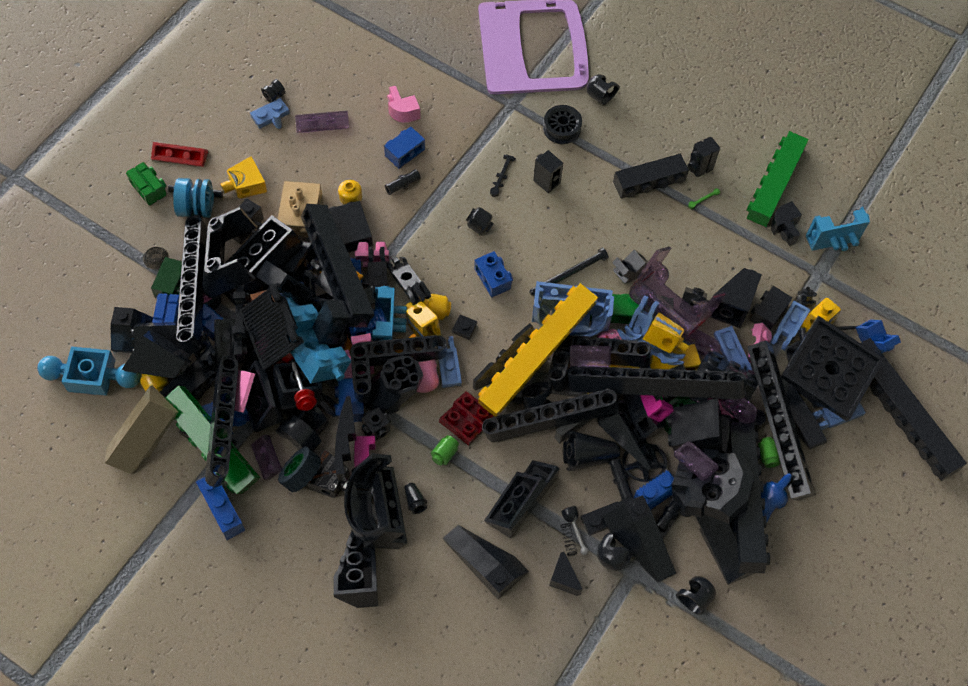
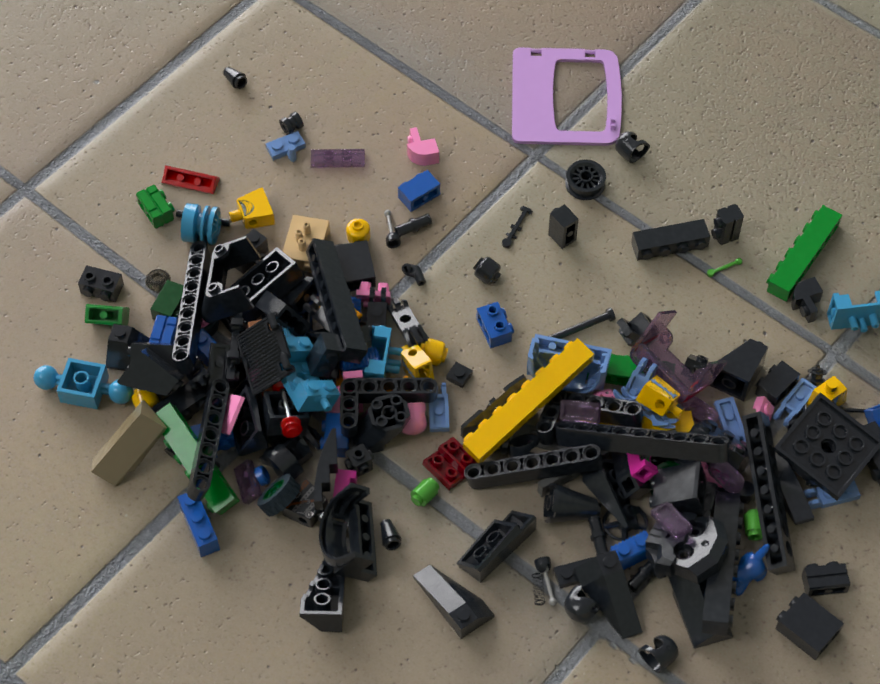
camera: 10 degrees right, 5 degrees down
(98, 266) = (100, 283): none -> black brick
(107, 297) = (106, 314): none -> green brick
(214, 50) = (236, 78): none -> black cone
(280, 449) = (262, 475): none -> blue tile
(384, 197) = (392, 239): none -> black hinge
(410, 228) = (415, 272): none -> black arm
(565, 577) = (528, 623): black slope -> none
(836, 550) = (808, 625): none -> black brick
(845, 501) = (825, 579): none -> black brick

